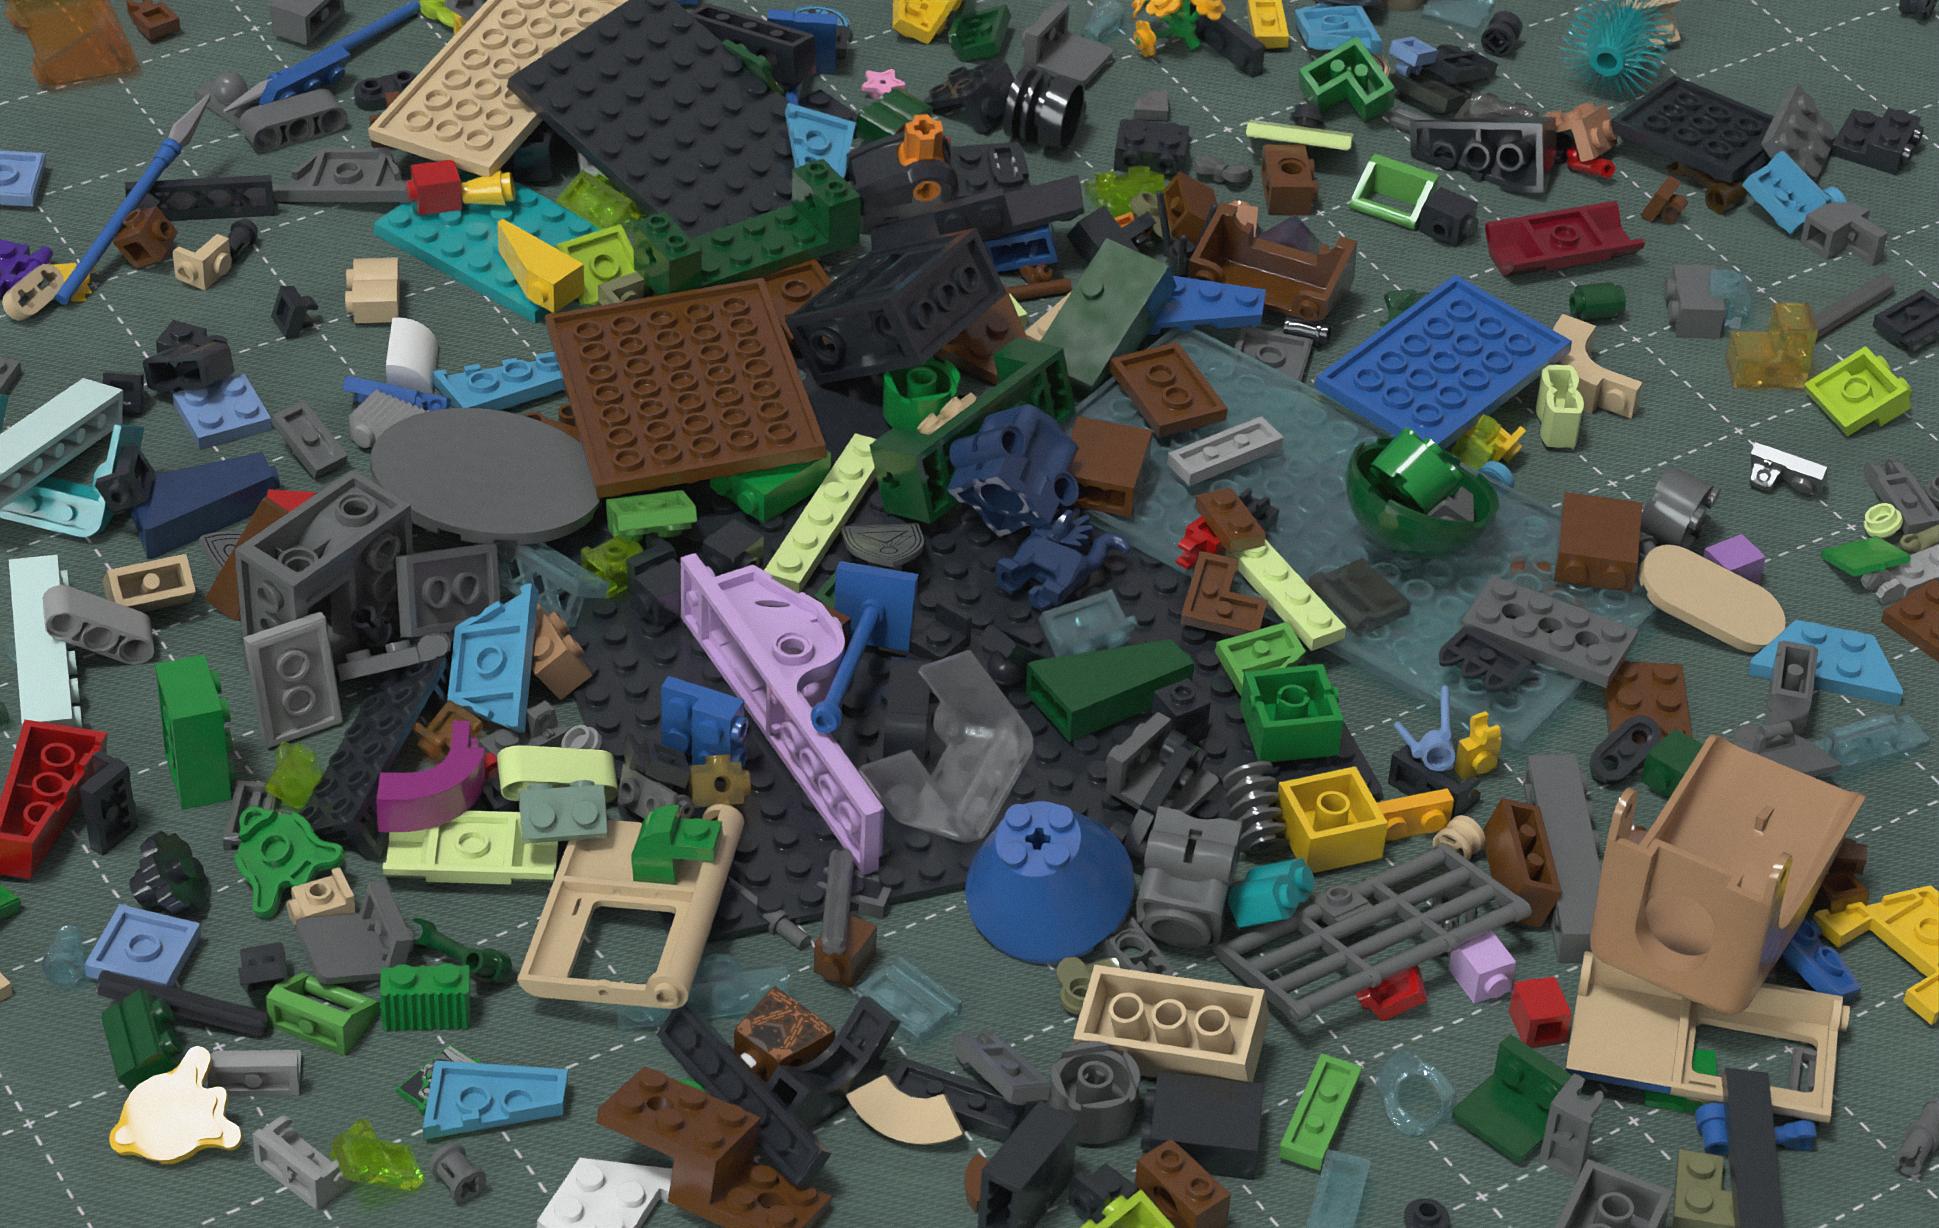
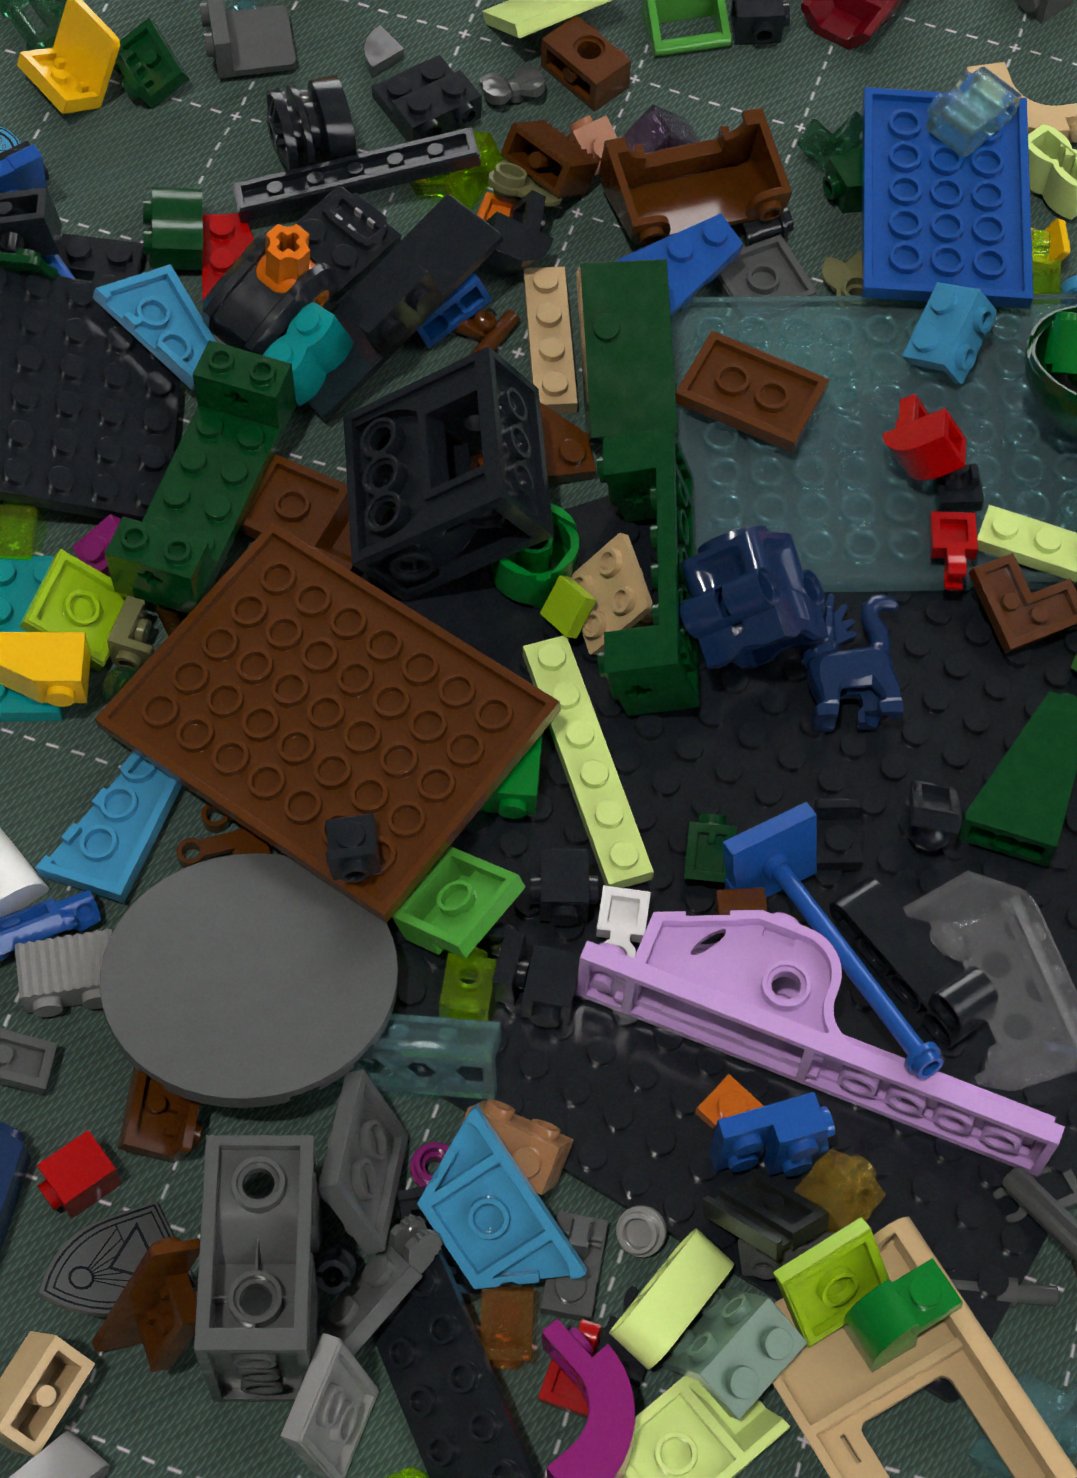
camera: 40 degrees left, 20 degrees up
(613, 442) = (353, 848): none -> black bracket
(641, 788) = (830, 1280): none -> lime plate
(881, 82) = (112, 196): bright pink plate -> none
(884, 544) = (686, 764): dark grey shield -> none
(894, 215) = (314, 347): none -> teal brick
(911, 420) = (568, 606): none -> lime tile
(980, 90) = (212, 138): black bracket -> none
(1052, 151) = (357, 174): none -> black tile
(1087, 625) = (949, 725): clear light blue bracket -> none
(1109, 464) = (797, 503): reddish brown brick -> none
(1181, 250) = (583, 213): black plant -> none
(1225, 451) = (870, 417): light grey plate -> none
(1230, 520) = (967, 513): reddish brown plate -> none
(1247, 466) = (925, 442): none -> red brick
(1340, 432) = (951, 330): none -> dark azure bracket
(1510, 319) = (972, 111): none -> clear light blue brick
(1597, 301) = (962, 29): dark green brick -> none

